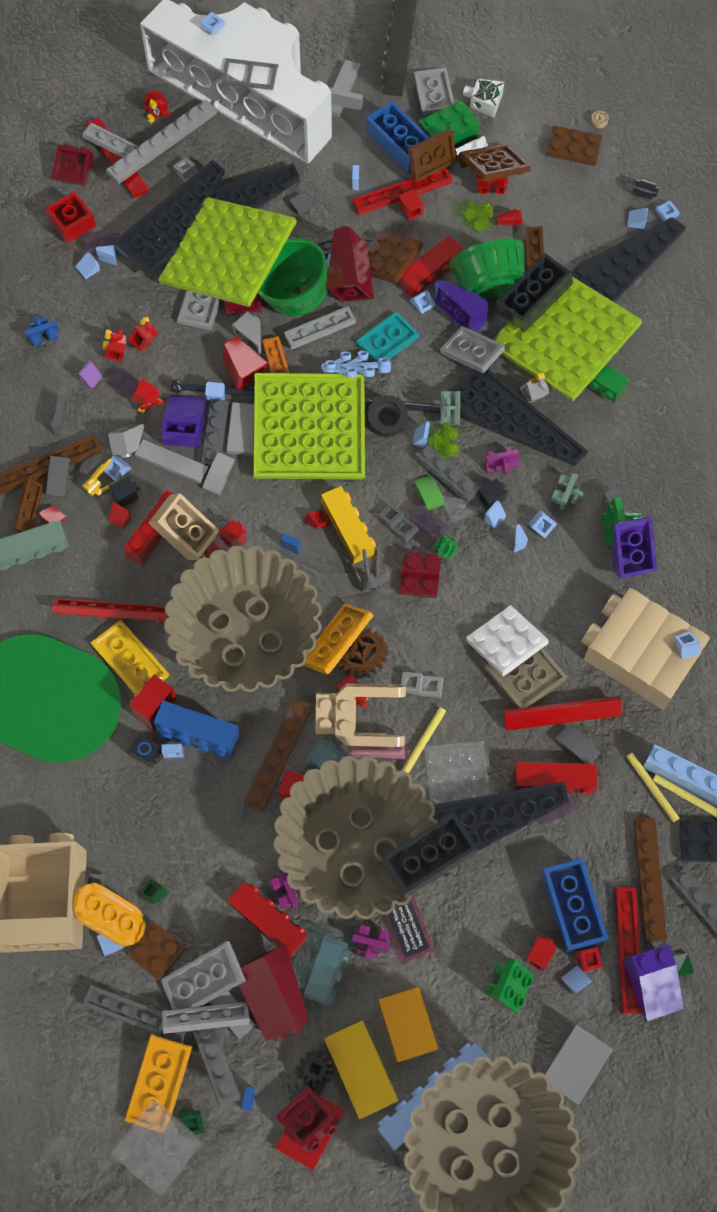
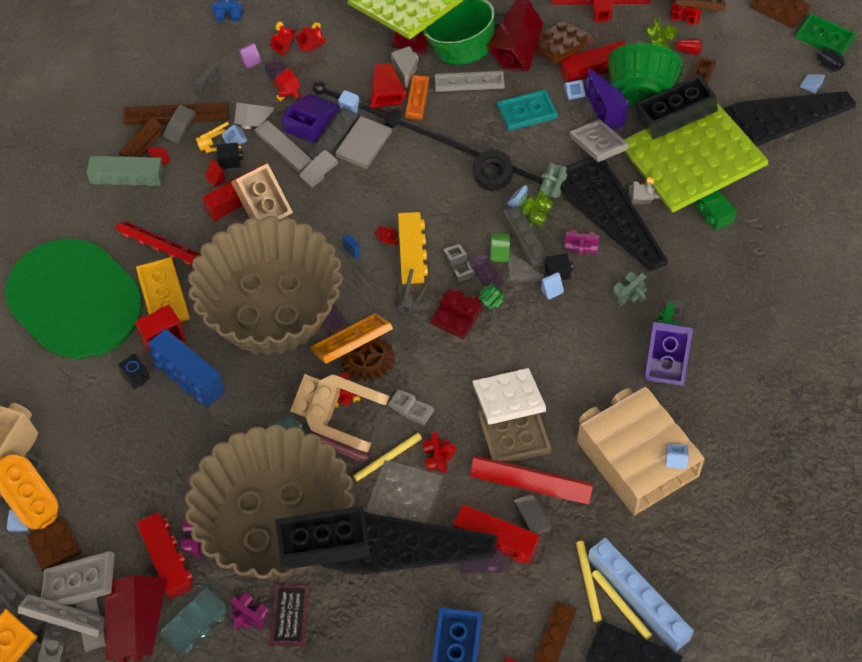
camera: 25 degrees right, 10 degrees down
(153, 892) = (78, 492): dark green slope -> none
(172, 750) = (157, 379): light blue plate -> none
(198, 310) = (370, 35): light grey tile -> none
(234, 533) = (305, 216): red brick -> none
(278, 754) = (254, 414): reddish brown plate -> none
(309, 426) = (417, 156): lime plate -> none
(355, 366) = (478, 117): light blue plant -> none
(472, 728) = (442, 451): none -> red hips
(520, 539) = (564, 315): light blue slope -> none
(542, 523) = (594, 309): light blue slope -> none
(628, 163) = (825, 34): none -> green tile
(667, 211) = (844, 84): light blue tile -> none

